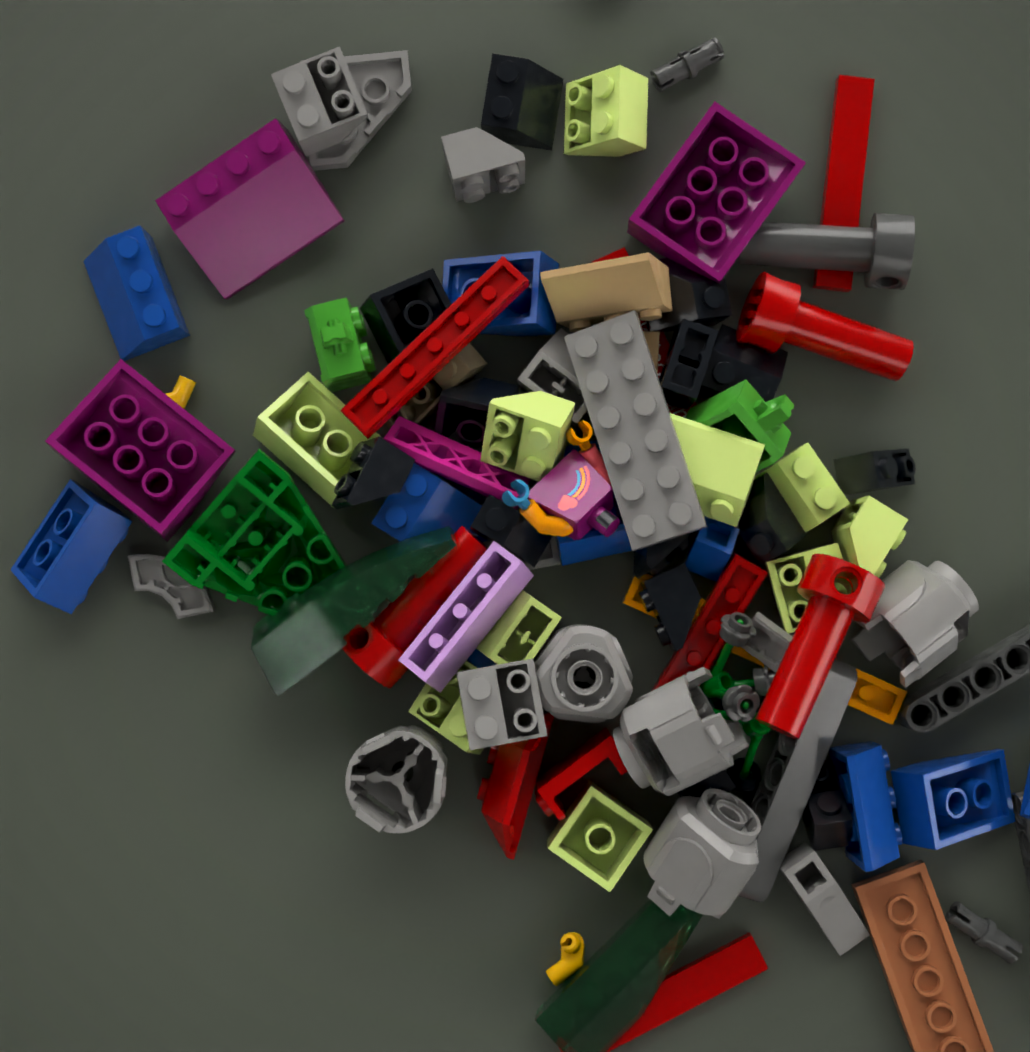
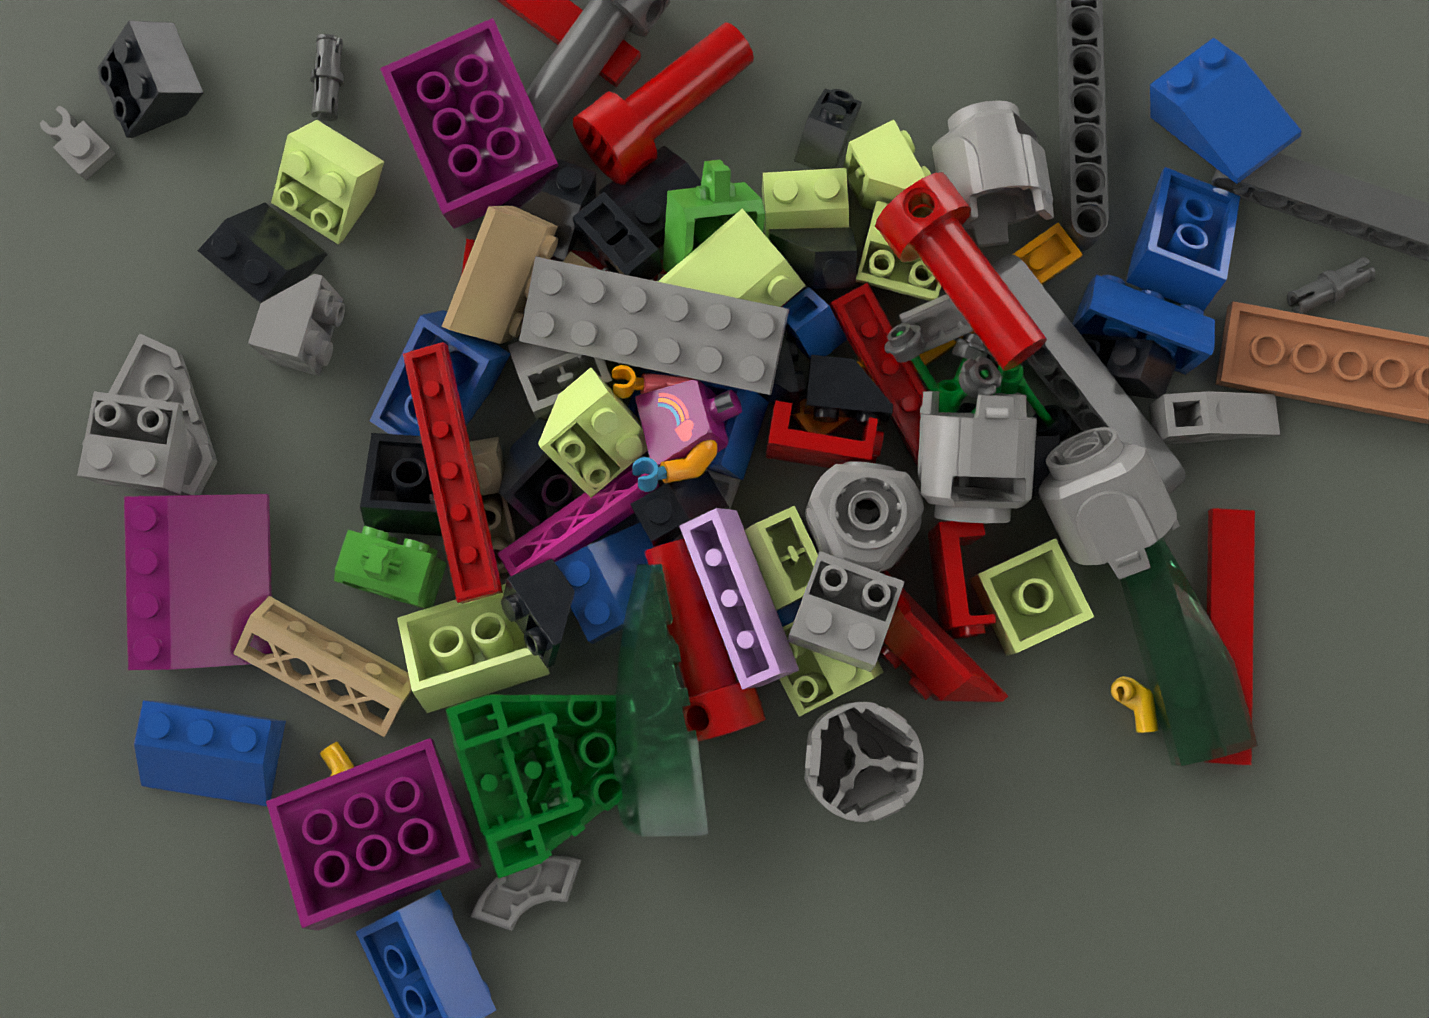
camera: 60 degrees left, 5 degrees down
(250, 339) = (328, 658): none -> tan fence
(617, 611) = (818, 448): none -> red panel

